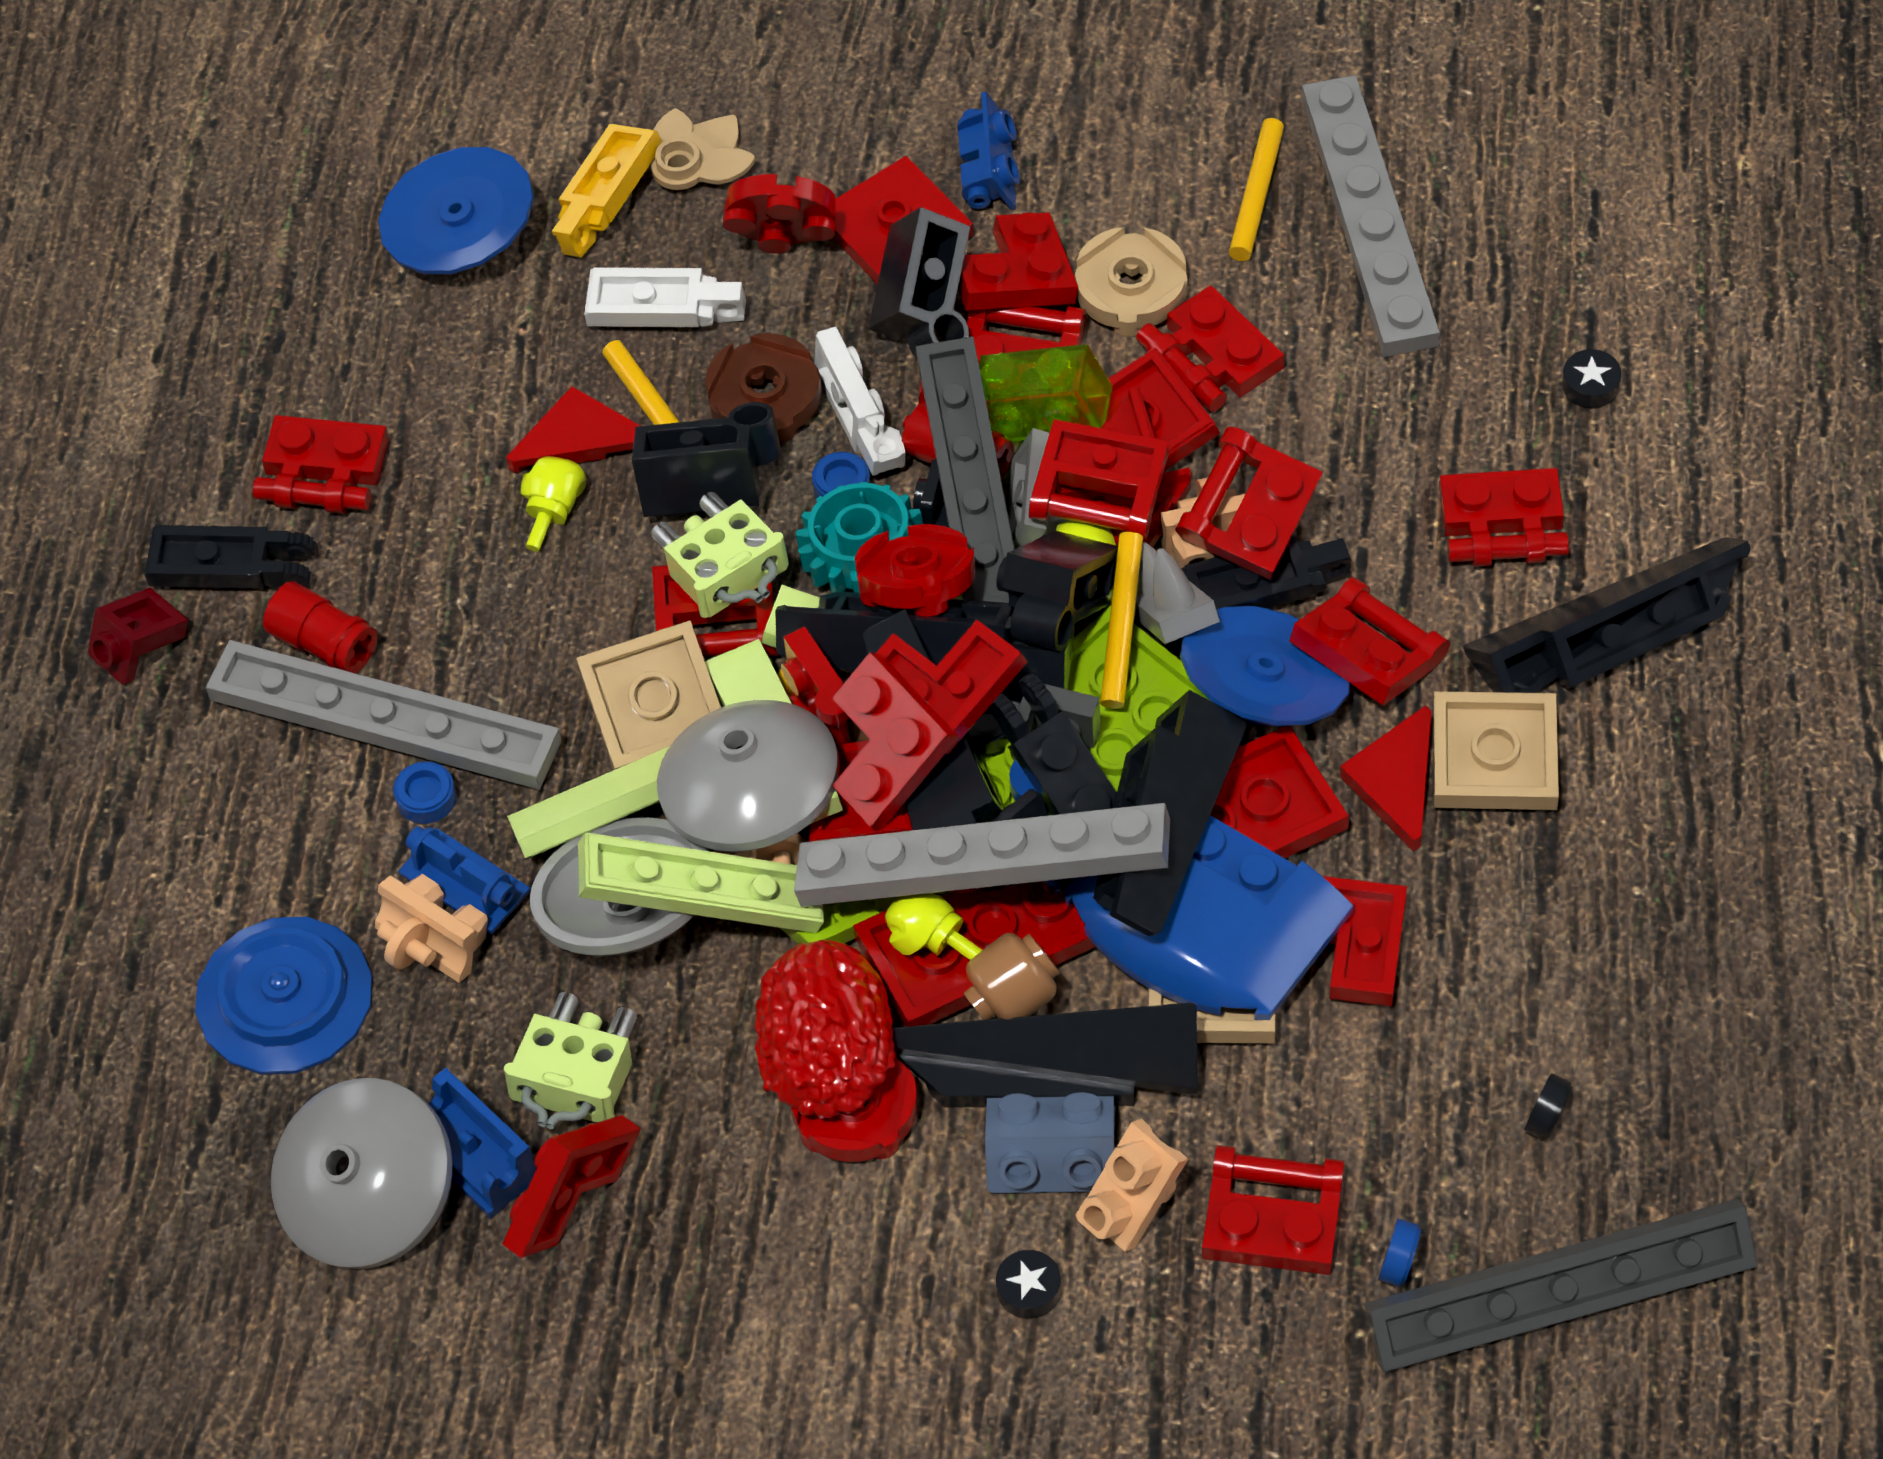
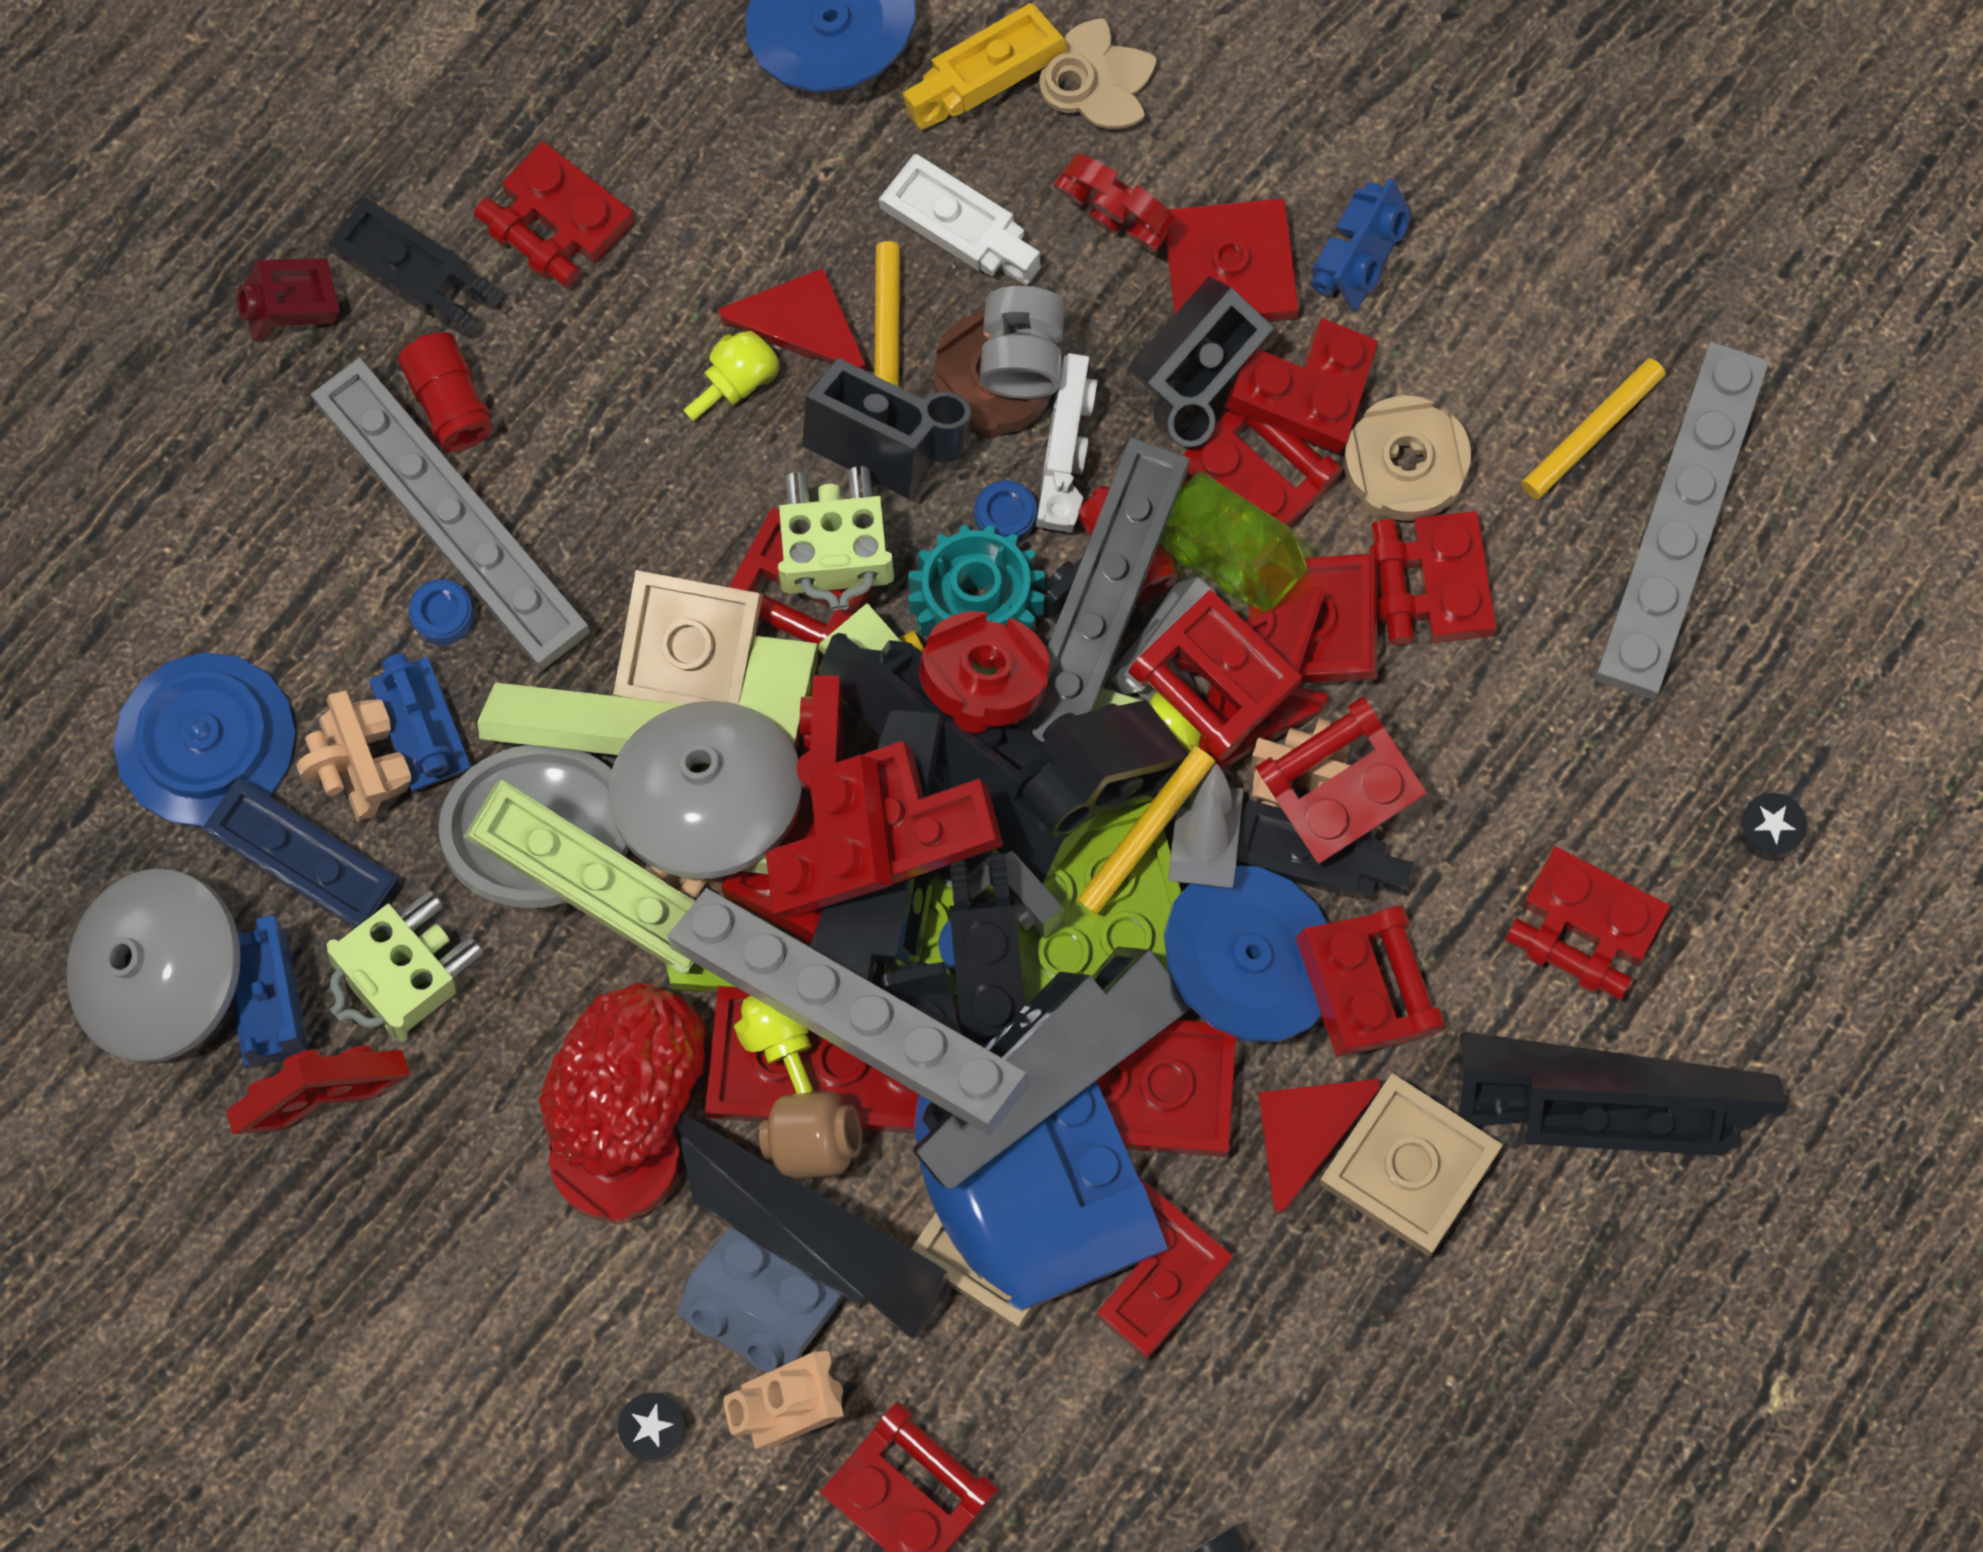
camera: 30 degrees right, 15 degrees up
(428, 1029) = (299, 855): none -> dark blue tile
(777, 339) = (1022, 342): none -> light grey wheel

